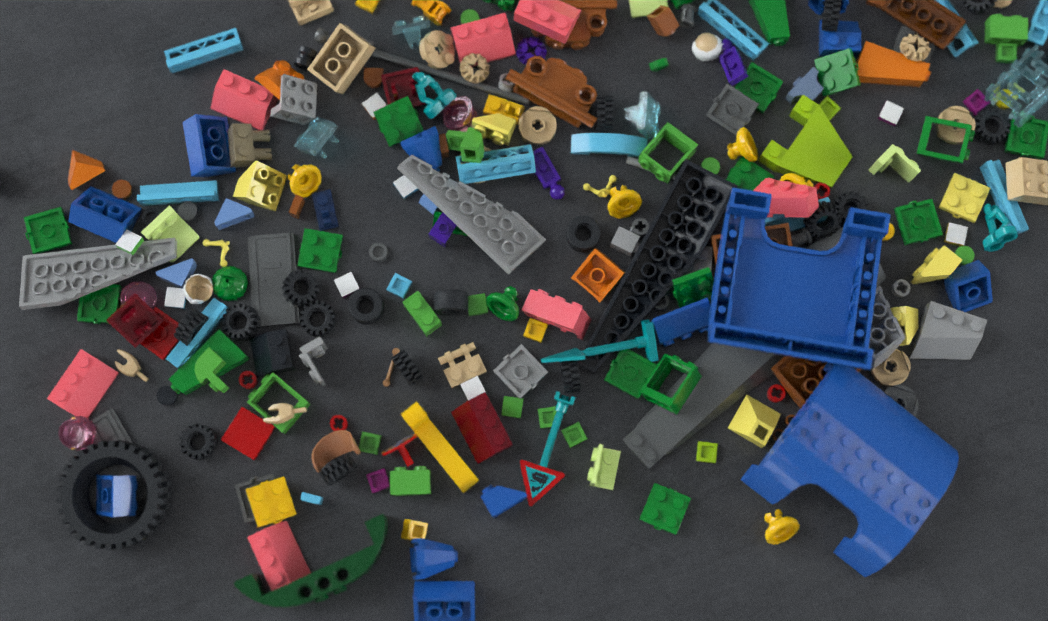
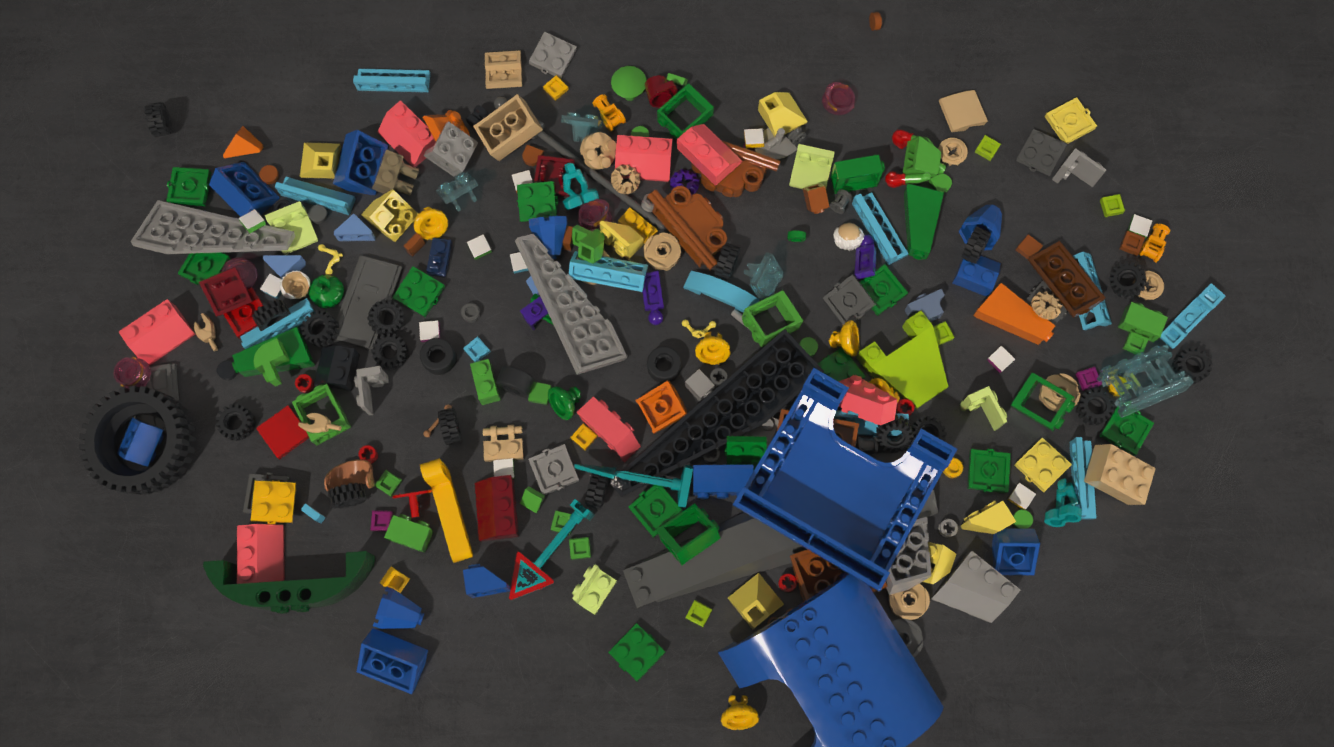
camera: 25 degrees right, 5 degrees down
(167, 157) = (320, 160): none -> light yellow slope
(359, 185) = (479, 247): none -> white tile
(837, 72) = (963, 302): plate -> none

